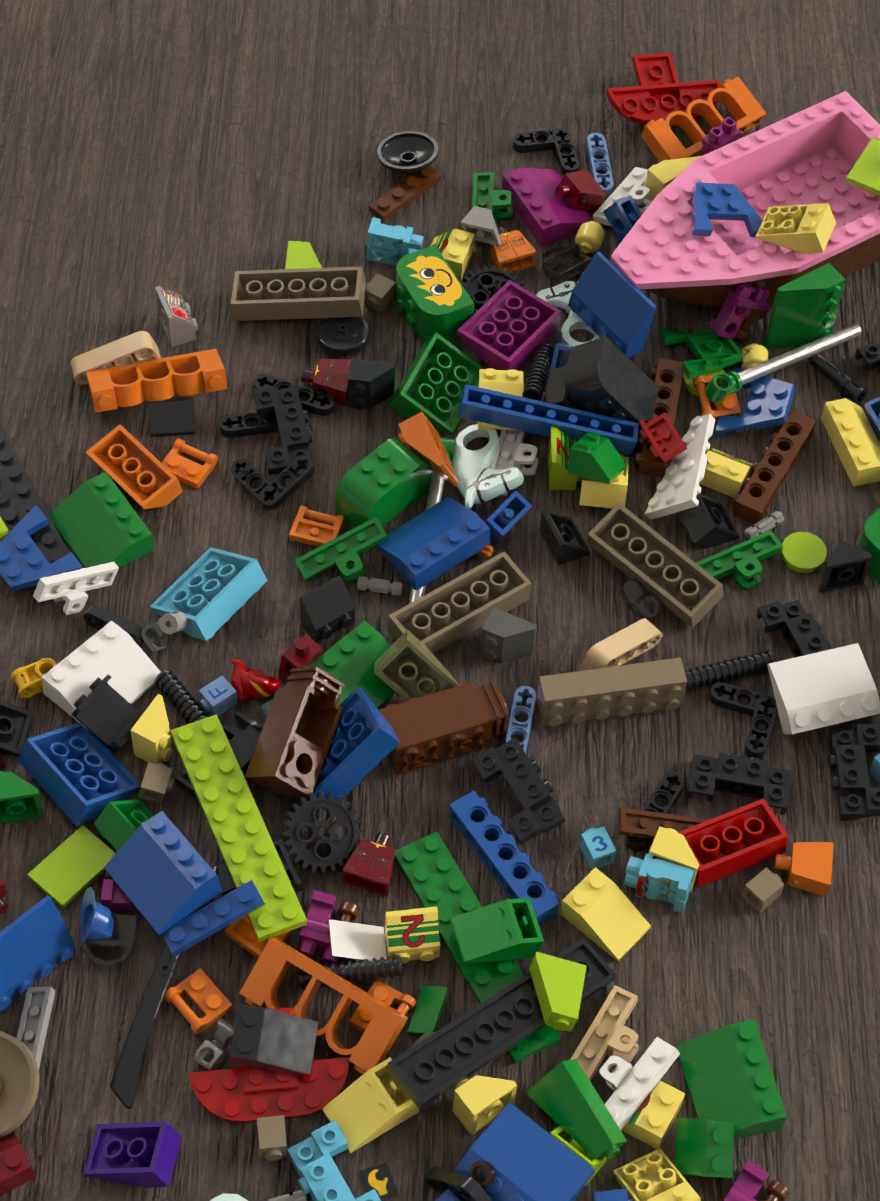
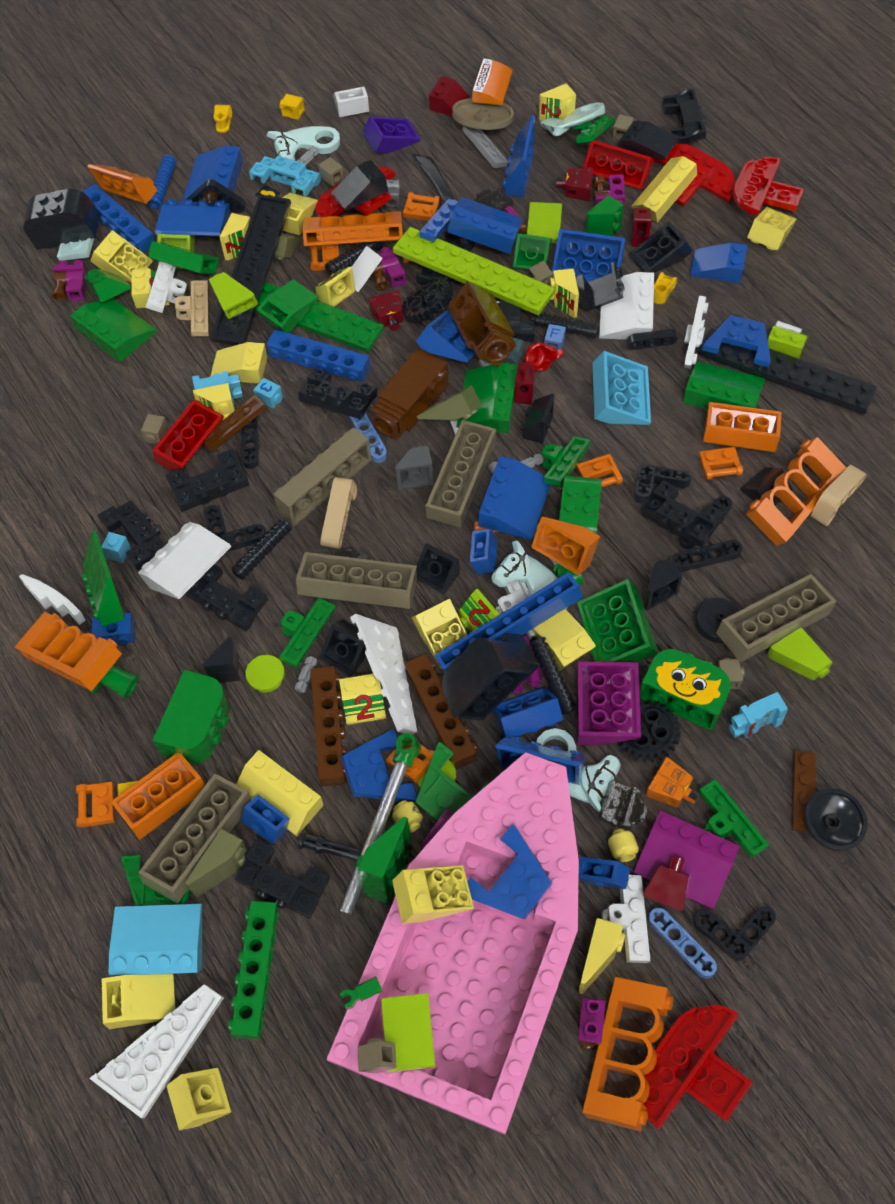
camera: 150 degrees right, 5 degrees up
(94, 918) = (500, 192): blue piece -> none
(167, 624) = (620, 345): leg -> none
(175, 317) = (840, 546): light grey slope -> none
(330, 378) = (695, 580): dark red torso -> none
(427, 1010) = (300, 267): green slope -> none
(456, 249) = (713, 748): light yellow slope -> none
(482, 224) = (705, 776): light grey slope -> none
(595, 459) = (449, 615): green slope -> none
(663, 436) = (420, 670): red bracket -> none
(808, 866) = (134, 458): orange torso -> none

